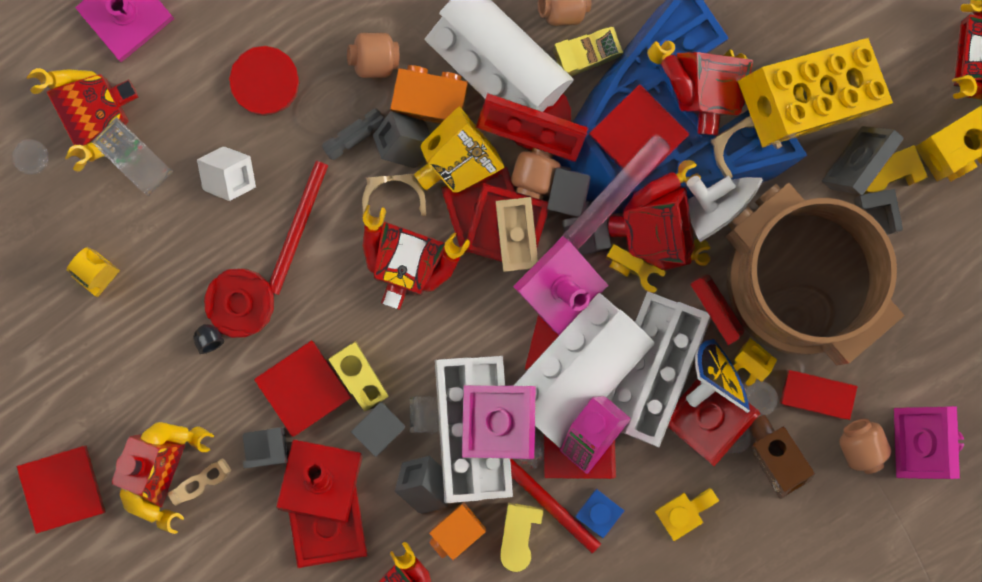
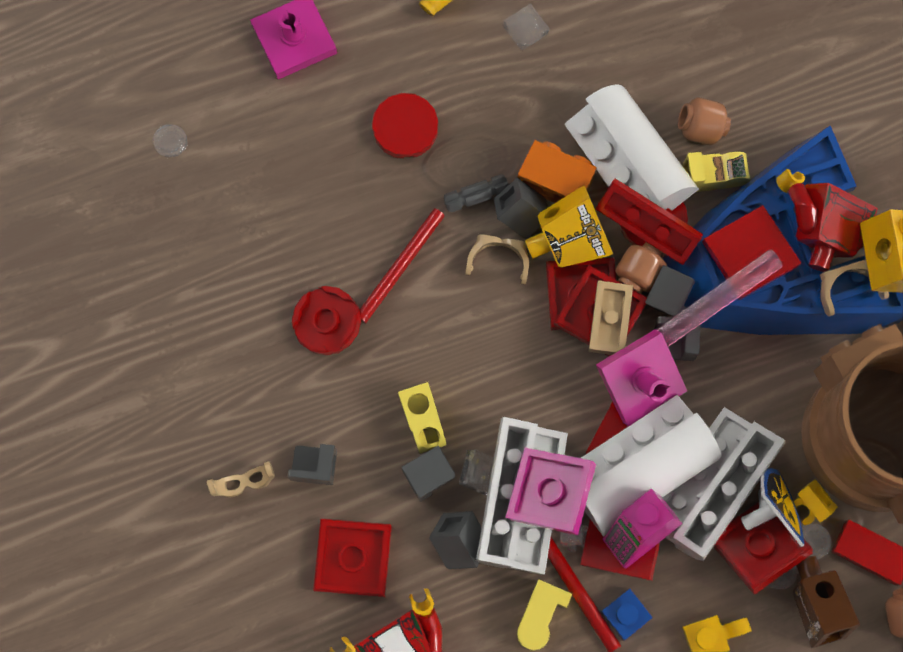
camera: 15 degrees right, 10 degrees down
(61, 489) = (106, 454): red tile -> none
(84, 106) = (234, 109): torso -> none
(92, 270) = (196, 254): yellow leg -> none
(132, 156) = (264, 160): clear slope -> none
(148, 469) = (195, 453): torso -> none
(207, 339) = (287, 347): black hinge -> none
(226, 173) = (347, 198): white panel -> none
(302, 388) = (365, 417): red tile -> none
(319, 481) = (357, 510): red tile -> none
(373, 55) = (513, 125): nougat head -> none
(406, 259) = (498, 318): torso -> none
(456, 532) = (480, 592): orange brick -> none
(625, 263) = (711, 375): yellow plate -> none
(660, 223) = (753, 342): red torso -> none
(718, 309) = (792, 438): red tile -> none
(720, 203) = (815, 334): white shield -> none

